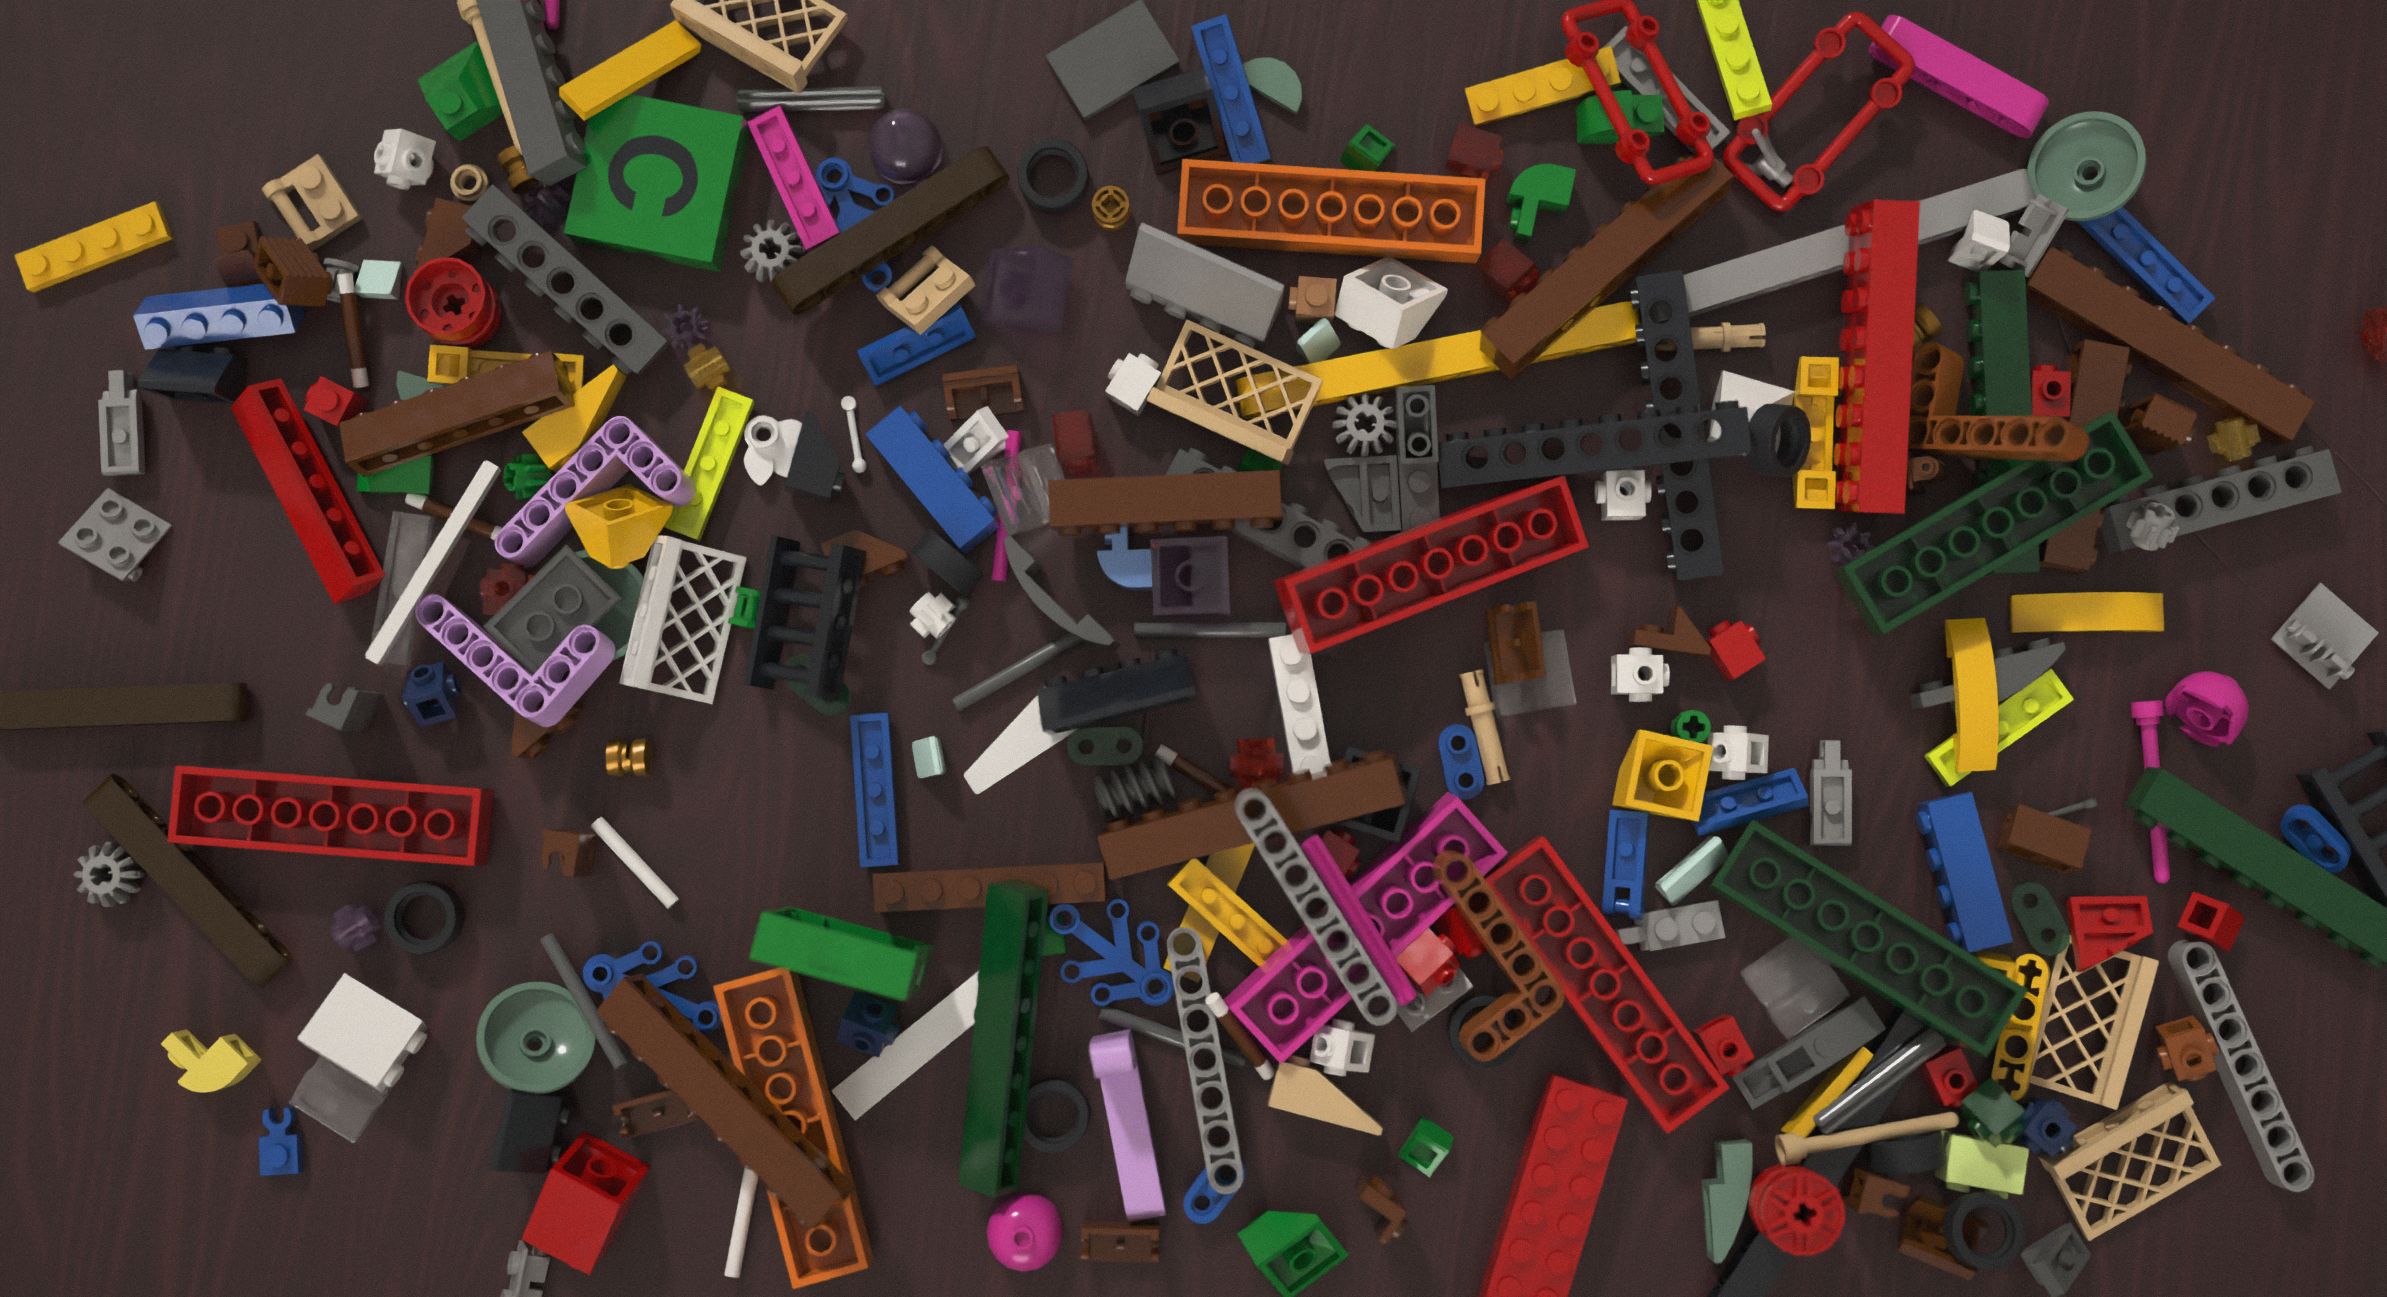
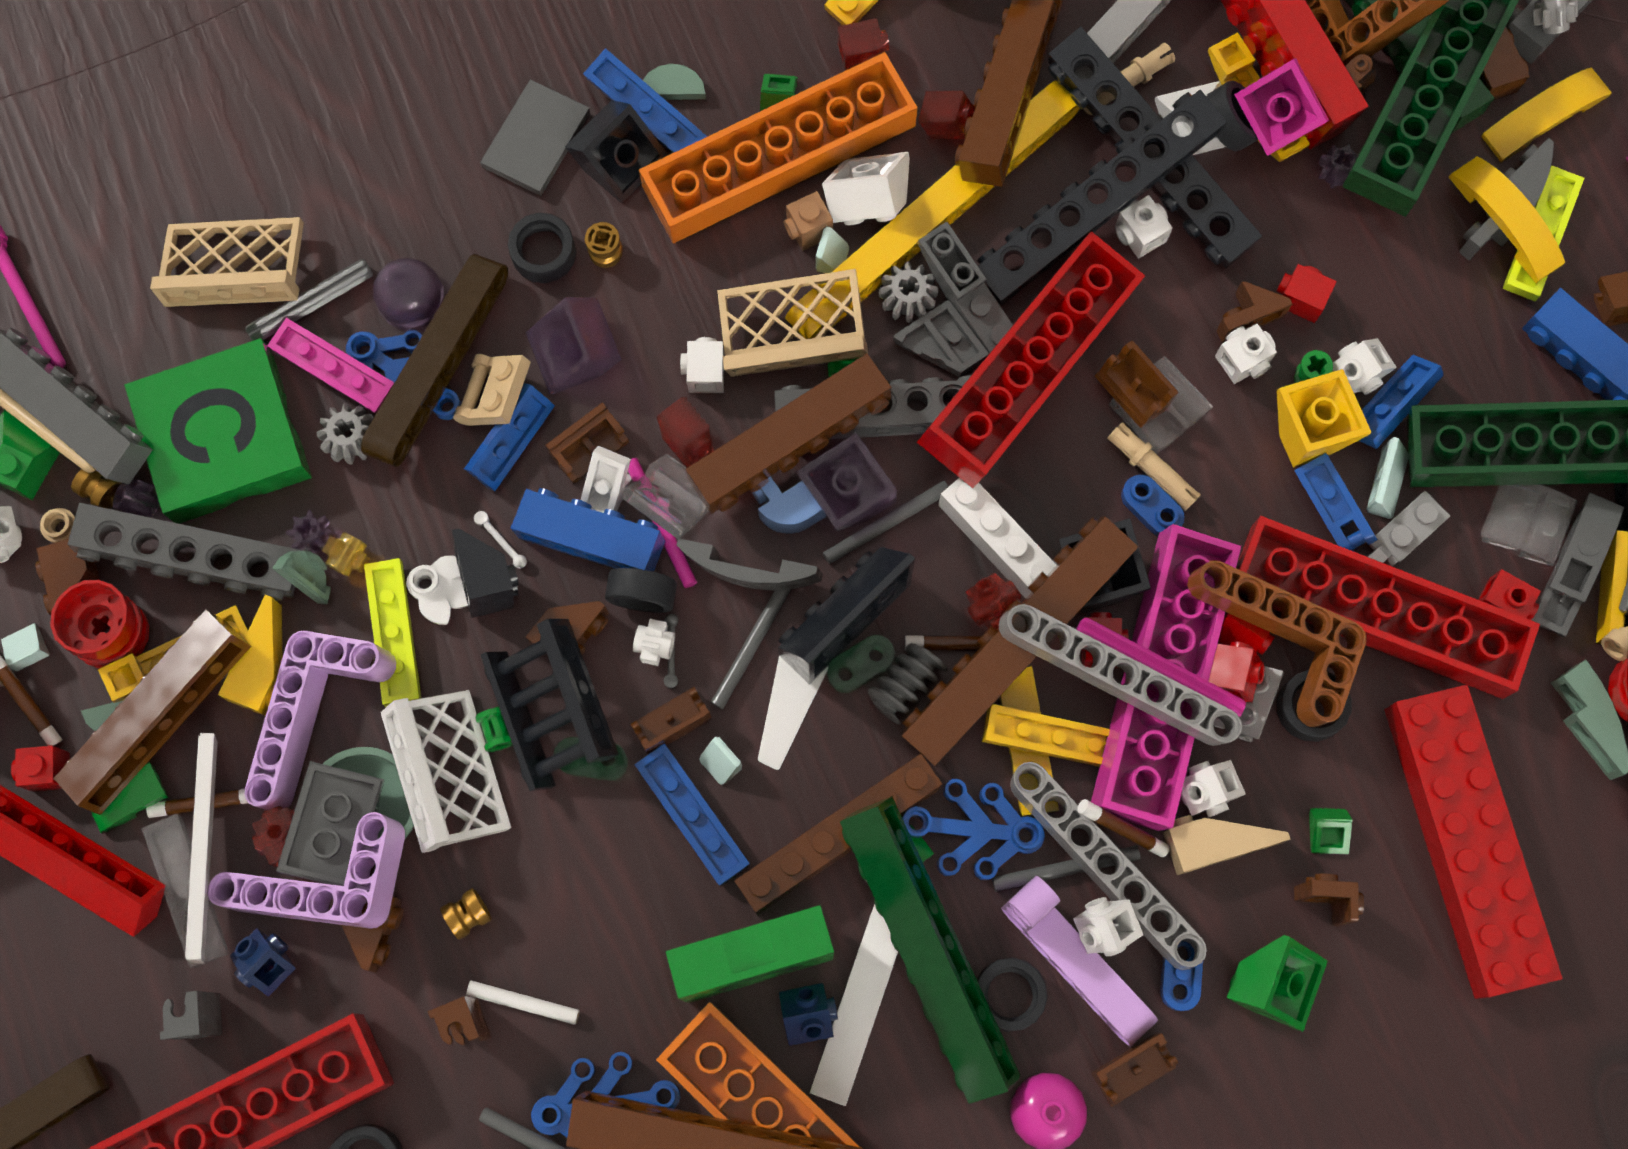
camera: 35 degrees left, 10 degrees down
(526, 475) = (241, 730): green gear -> none
(618, 524) = (345, 721): yellow slope -> none
(629, 70) = (145, 356): yellow tile -> none
(660, 364) = (306, 573): none -> sand green tile
(906, 694) = (671, 720): none -> reddish brown hinge
(1169, 1112) = (1107, 926): none -> white brick
(1203, 287) = (714, 252): light grey slope -> none
(1541, 188) = (929, 44): green brick -> none
(1820, 463) = (1281, 107): none -> dark pink slope
(1830, 797) = (1457, 358): light grey hinge -> none

